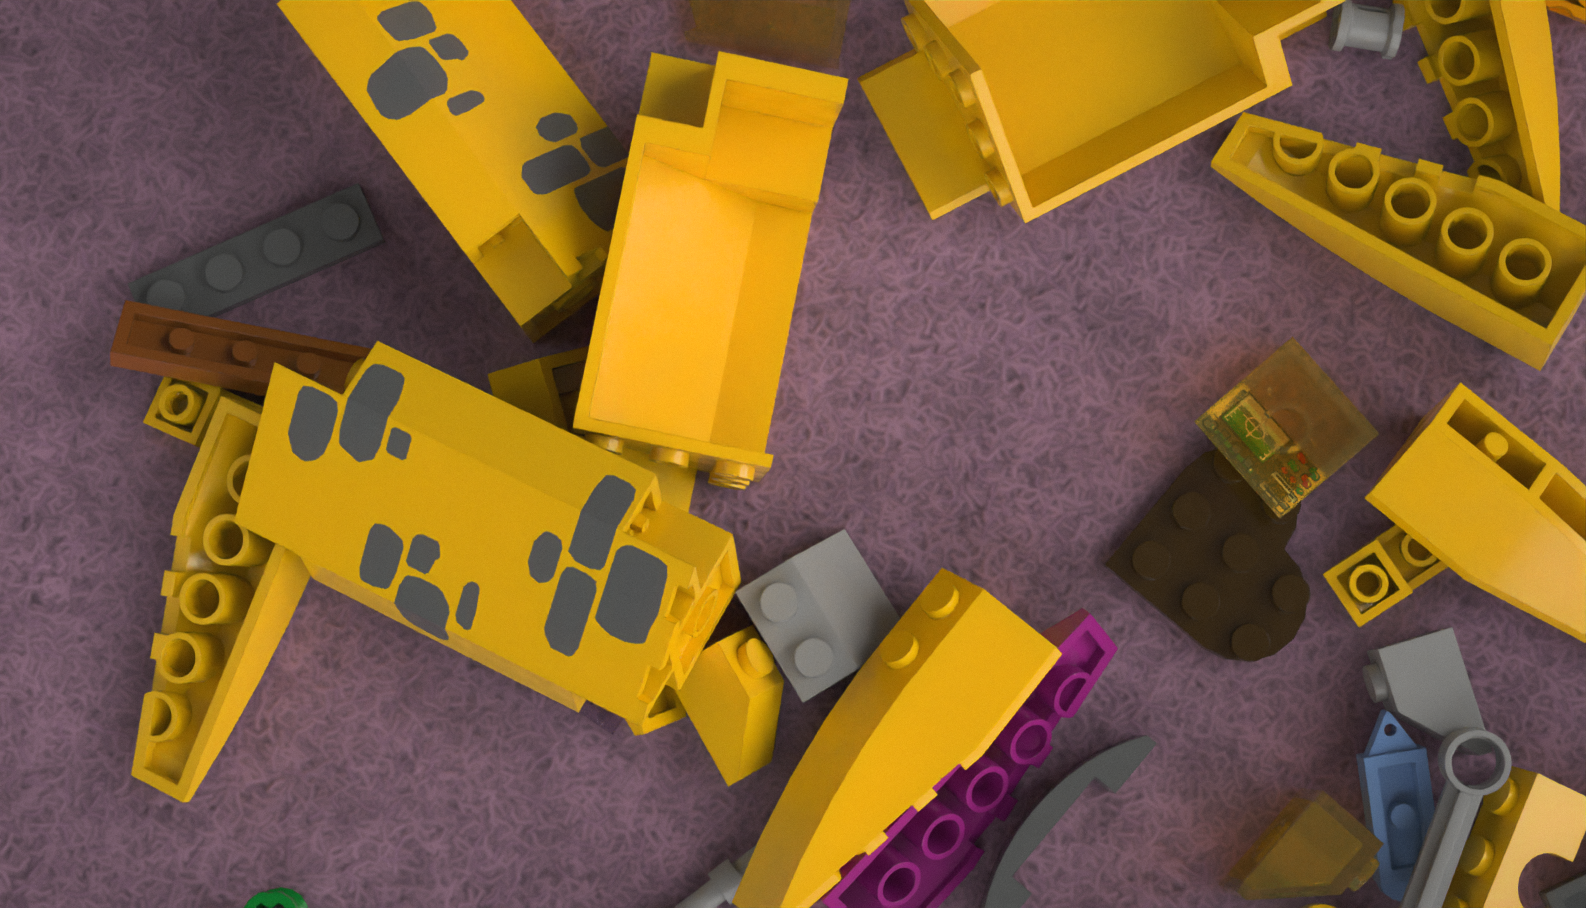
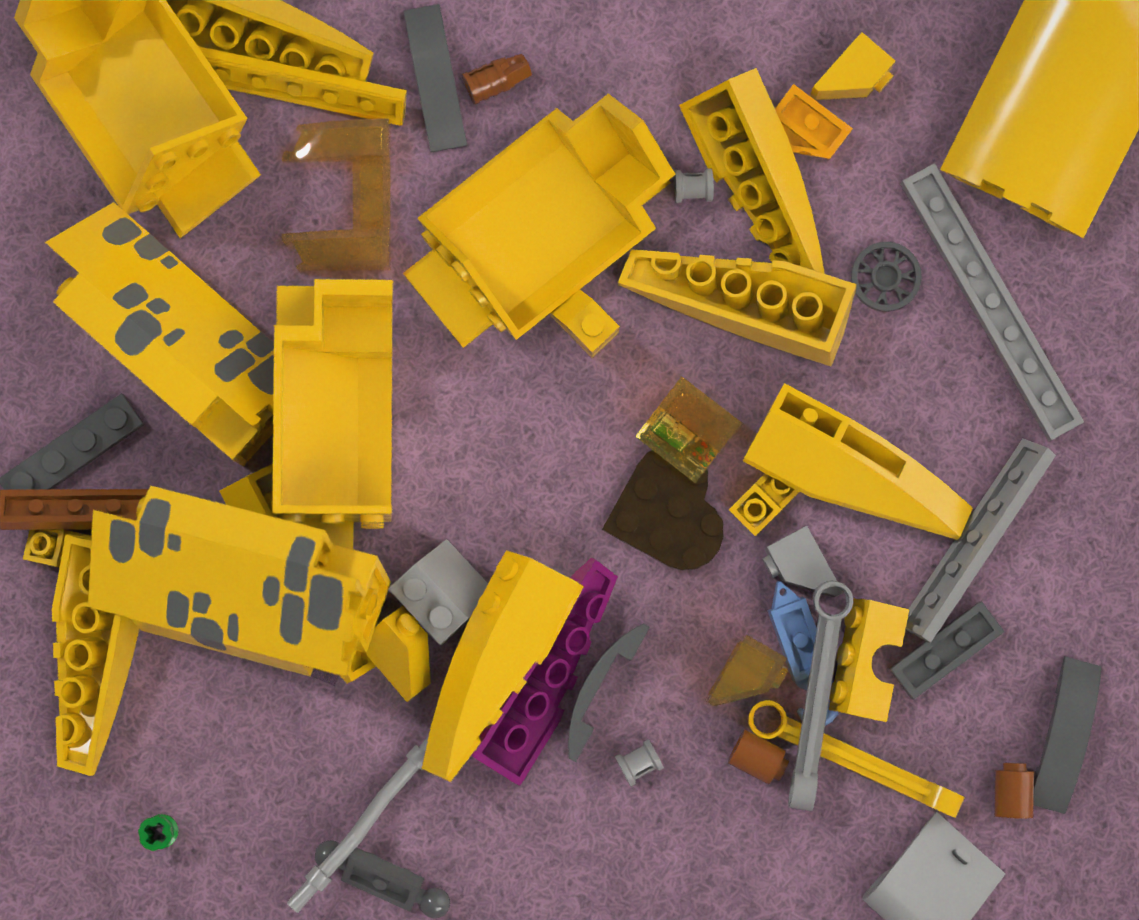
camera: 15 degrees left, 0 degrees up
(1145, 217) = (586, 322): none -> yellow slope

